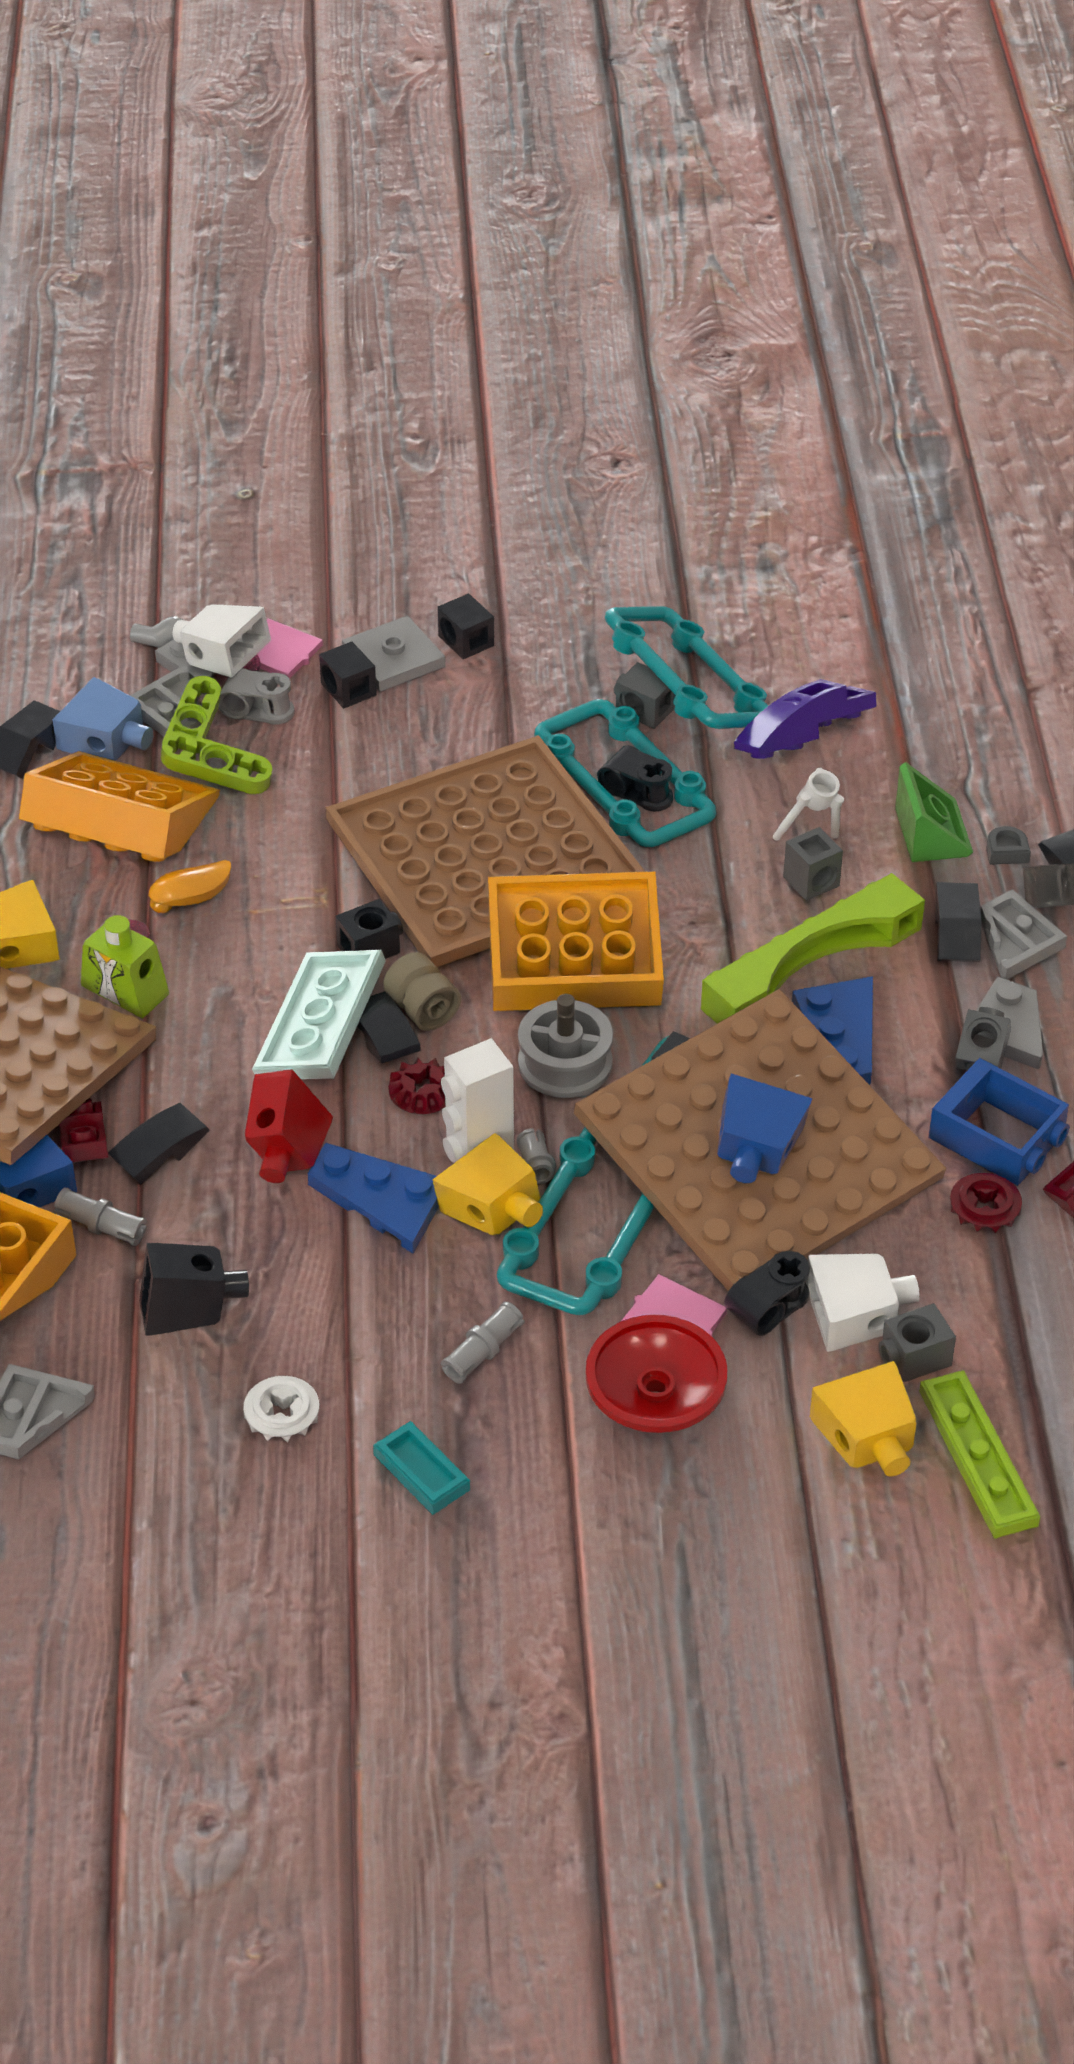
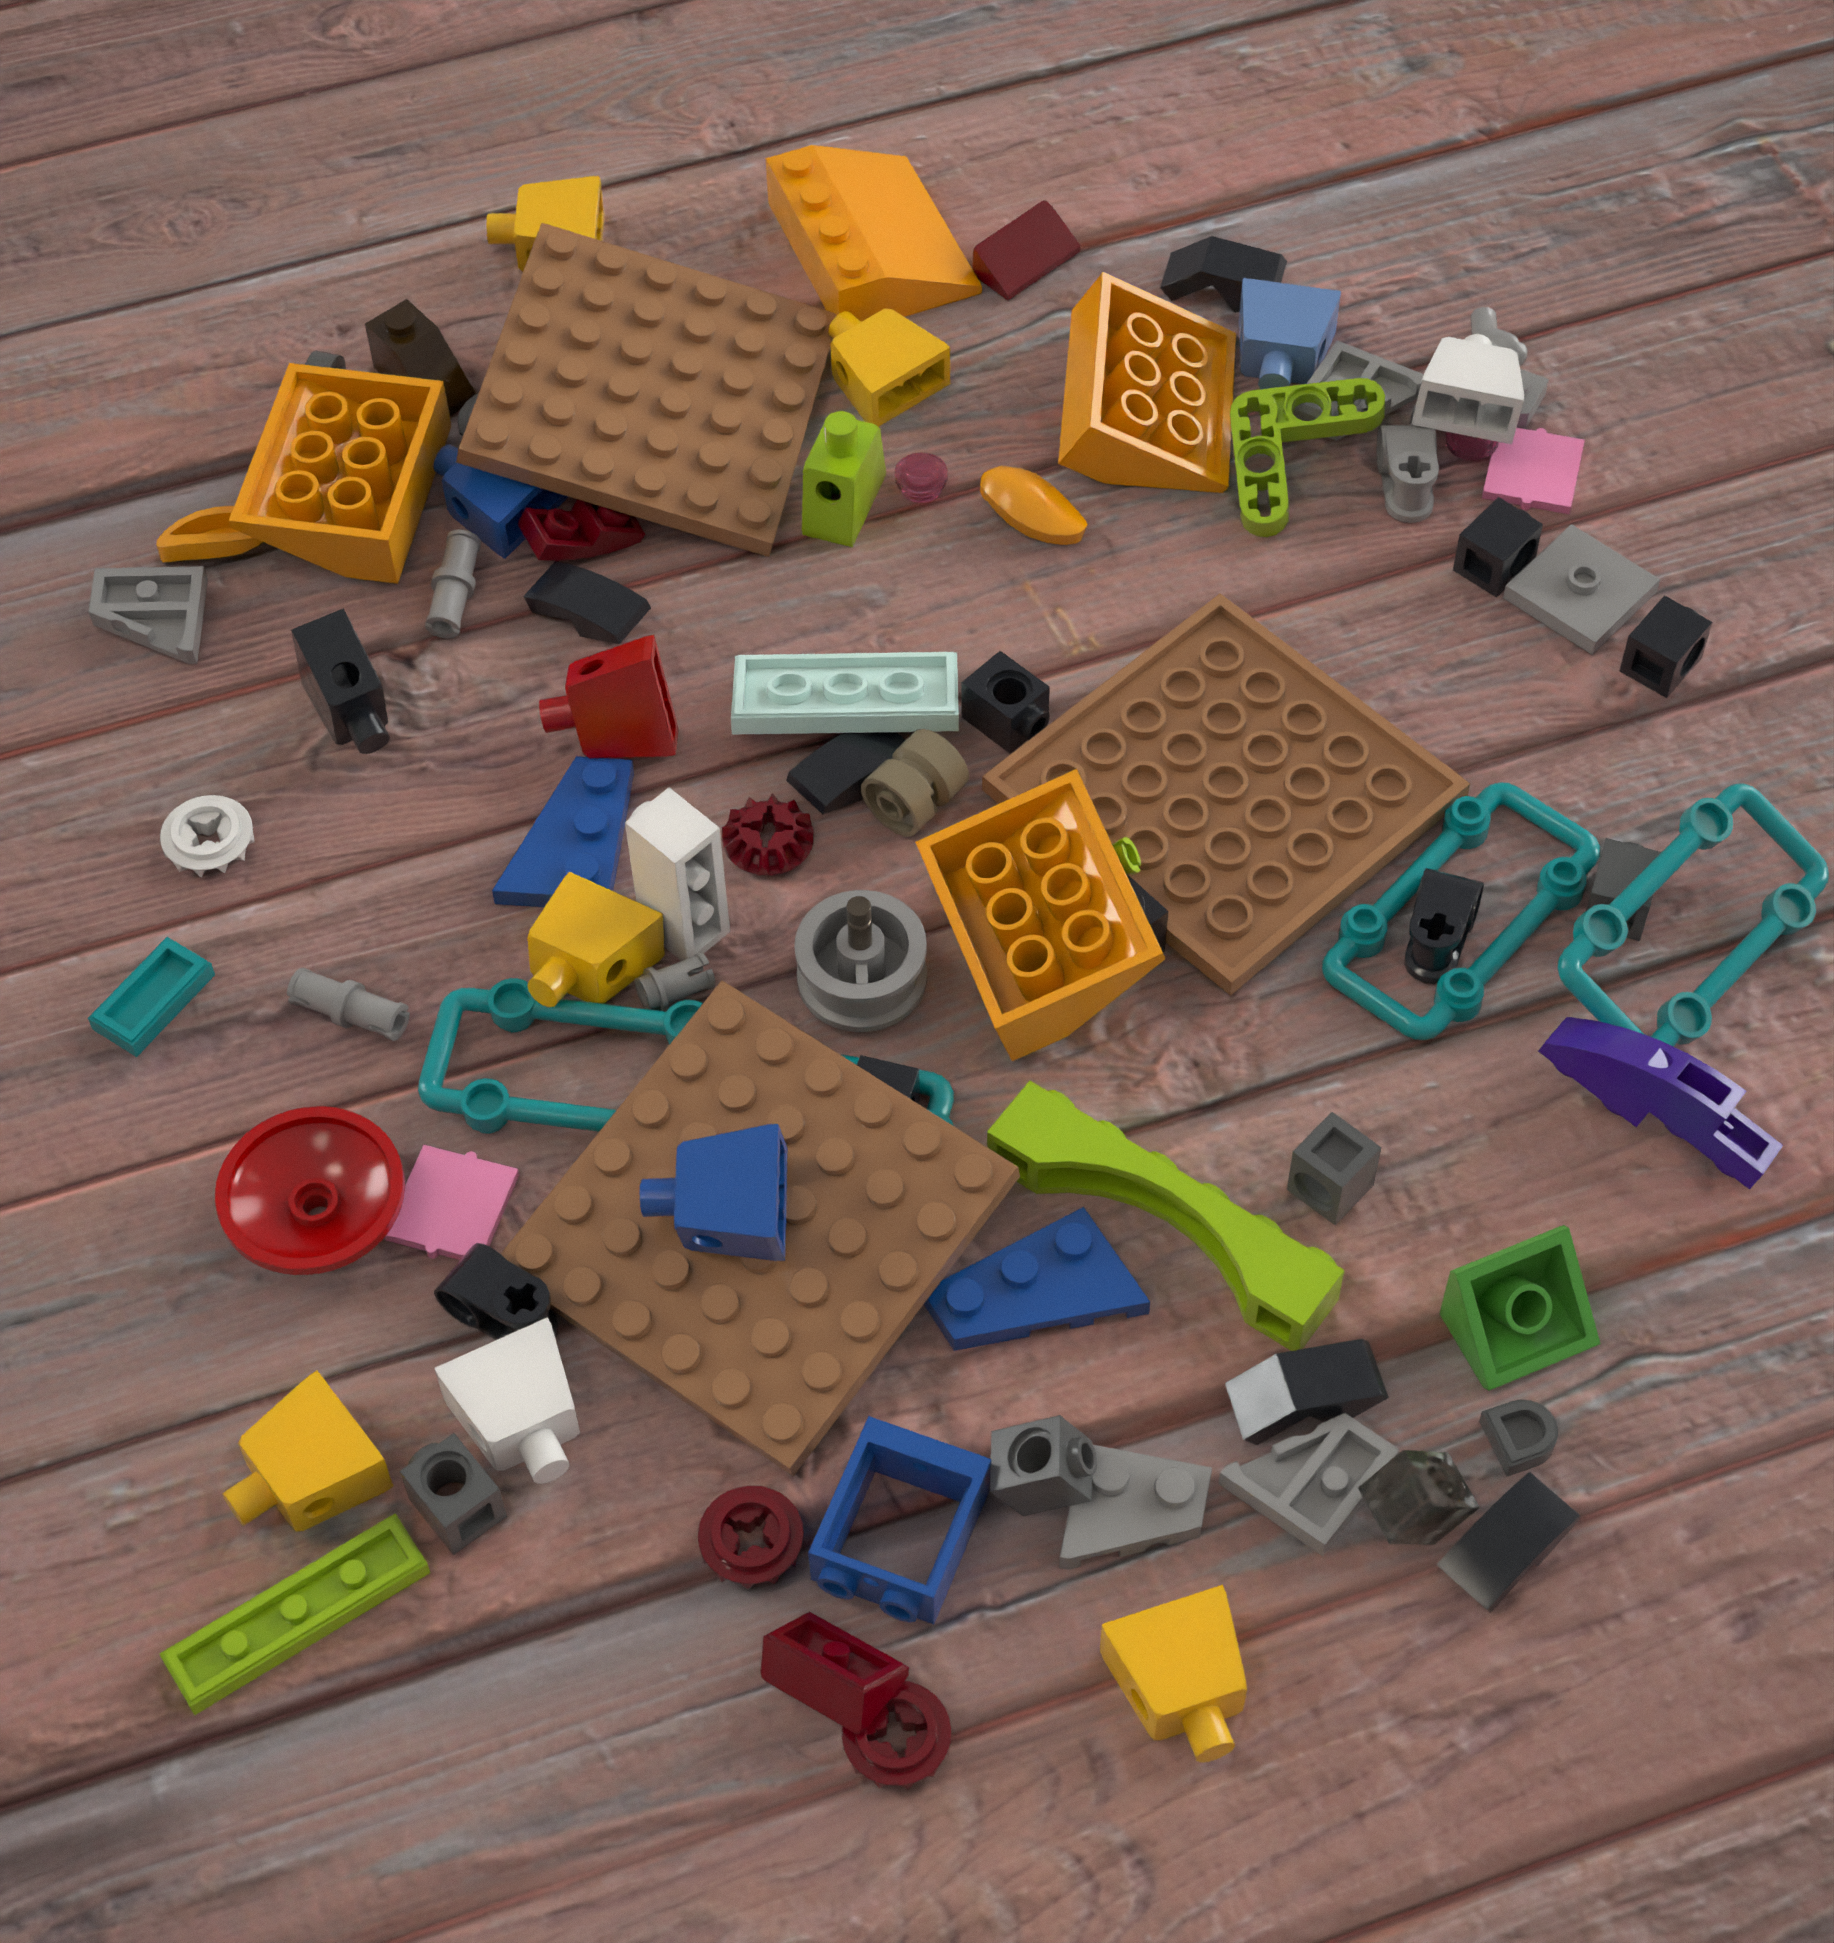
camera: 75 degrees right, 10 degrees up
(817, 795) = (1452, 1133): white plant -> none

